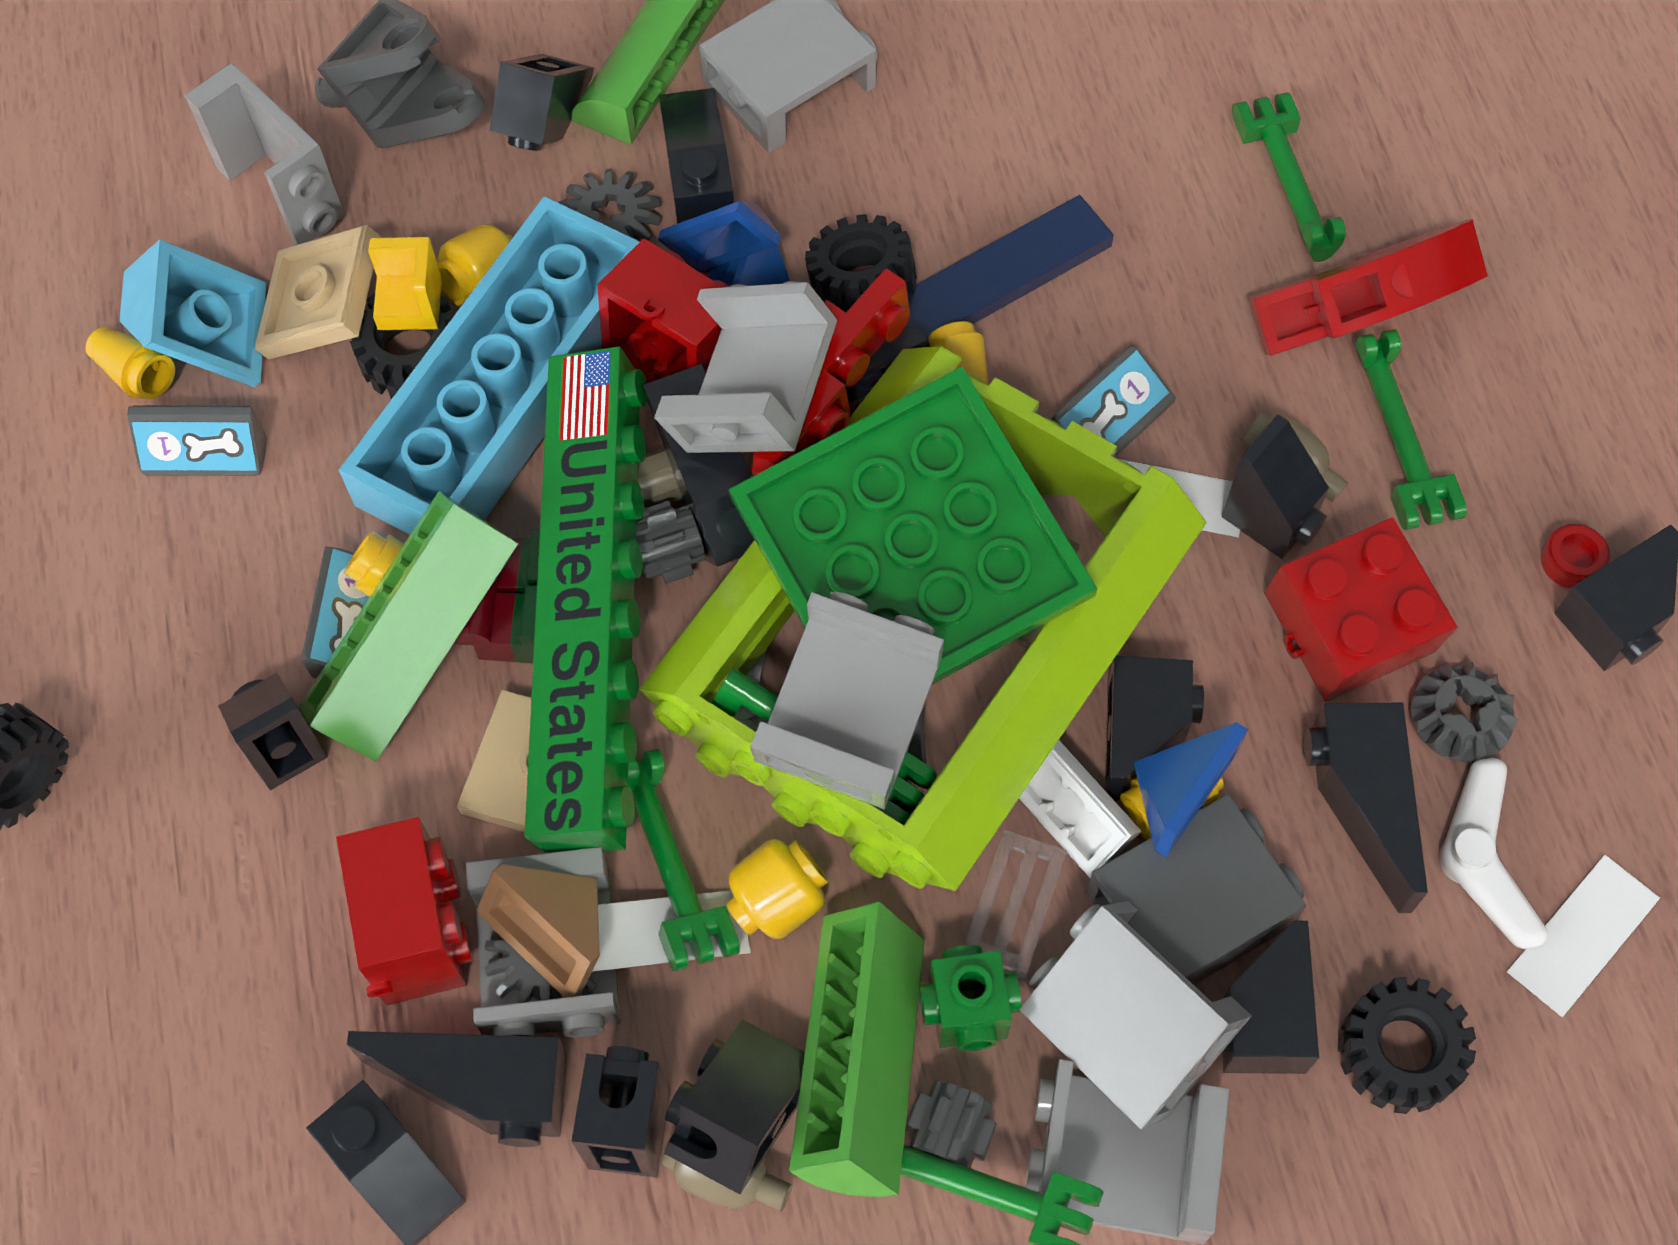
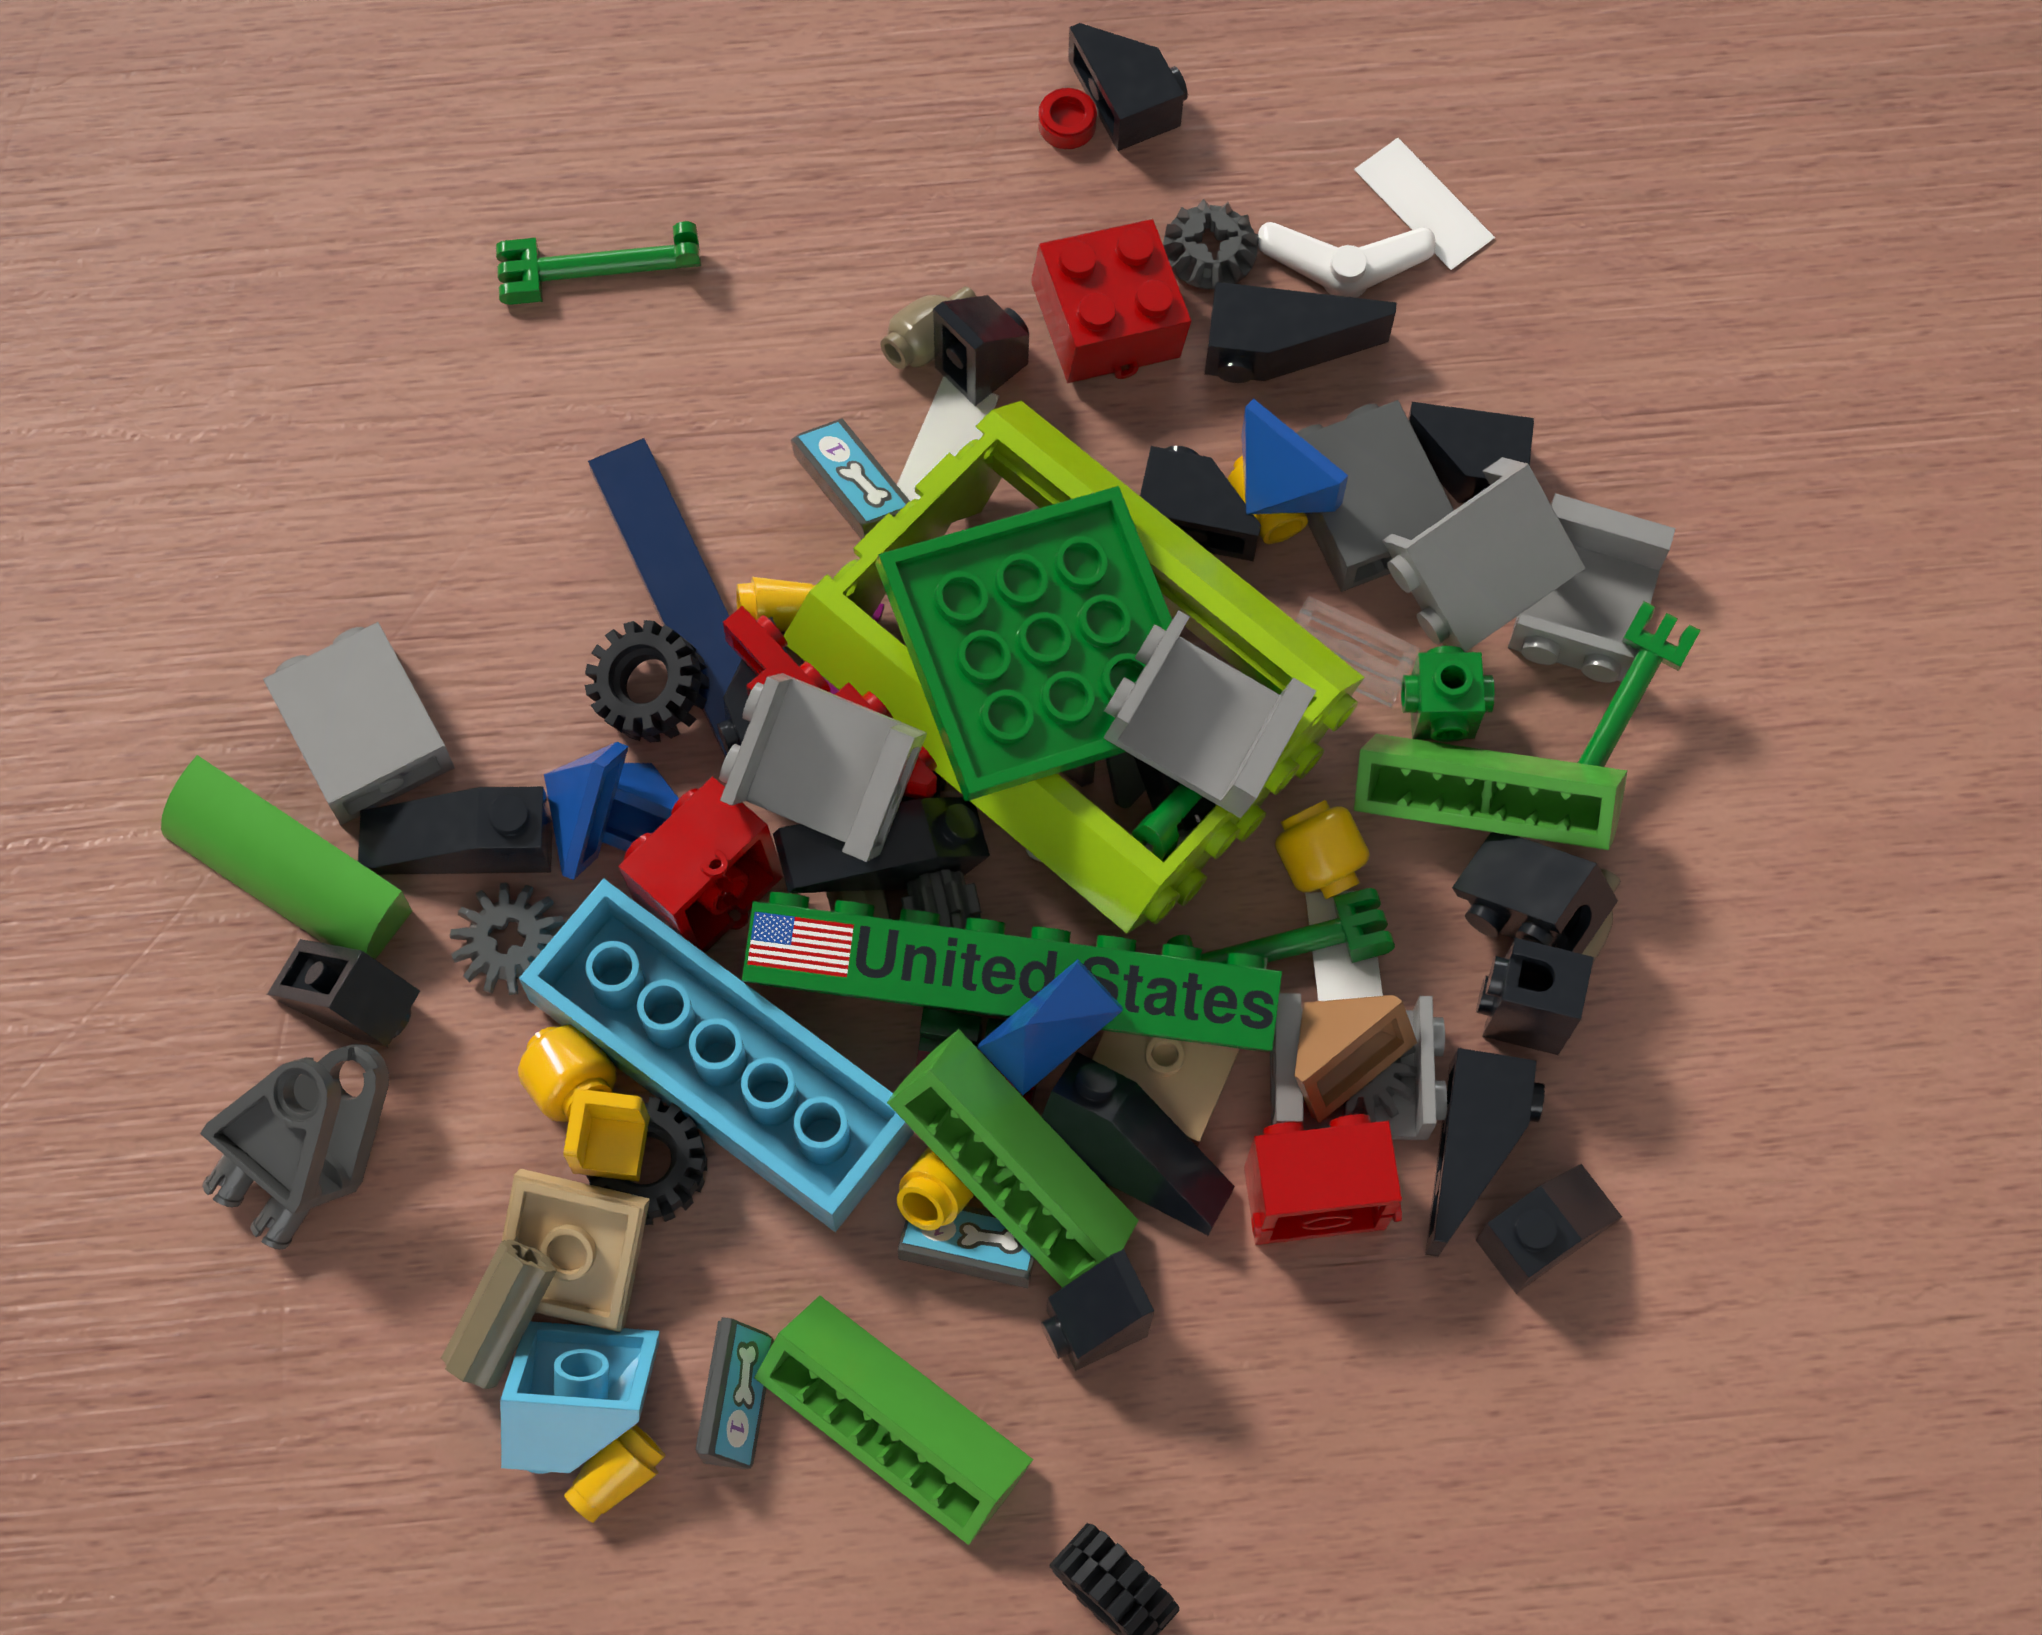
camera: 85 degrees left, 5 degrees up
(177, 573) = (893, 1418): none -> bright green brick
(245, 126) = (368, 1272): light grey panel -> none
(256, 244) = (498, 1314): none -> dark tan axle
(442, 736) = (1135, 1144): none -> black slope
(527, 623) = (1050, 1027): none -> blue slope
(952, 1124) = (1560, 726): dark grey gear -> none
(1078, 811) = (1287, 568): white plate -> none
(1369, 288) = (770, 214): red slope -> none
(1421, 486) = (989, 225): green hinge -> none
(1435, 1017) = (1521, 327): black tyre -> none

